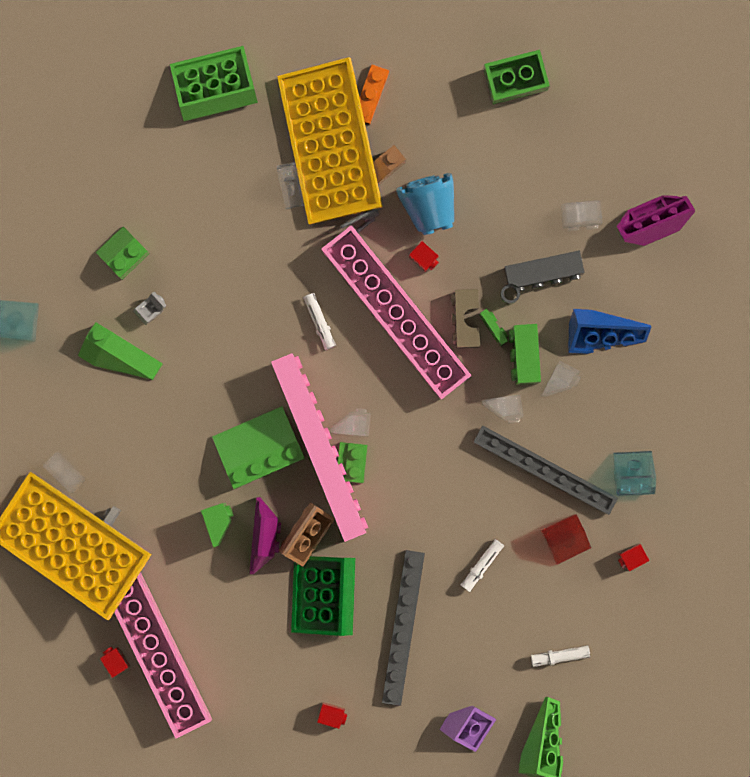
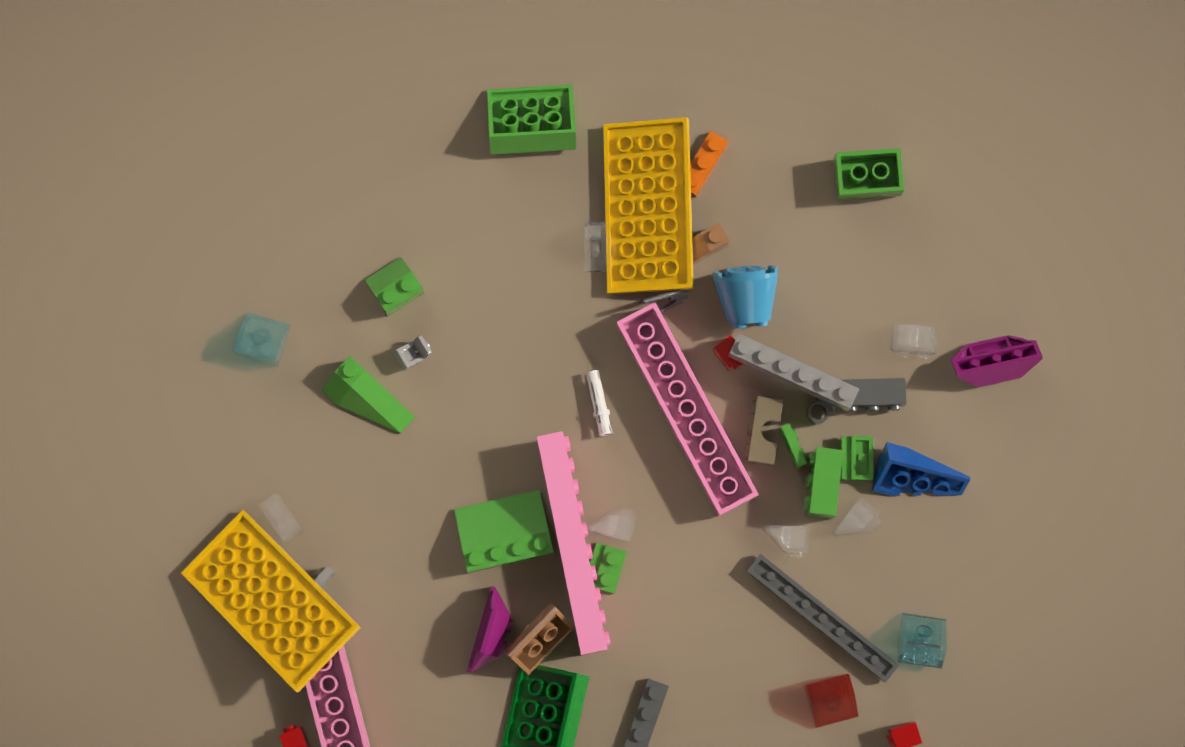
camera: 10 degrees right, 5 degrees down
(217, 521) = (442, 605): bright green slope -> none
(478, 570) = (731, 712): white pin -> none
(482, 264) = (793, 372): none -> light grey brick
(550, 327) = (857, 458): none -> bright green plate

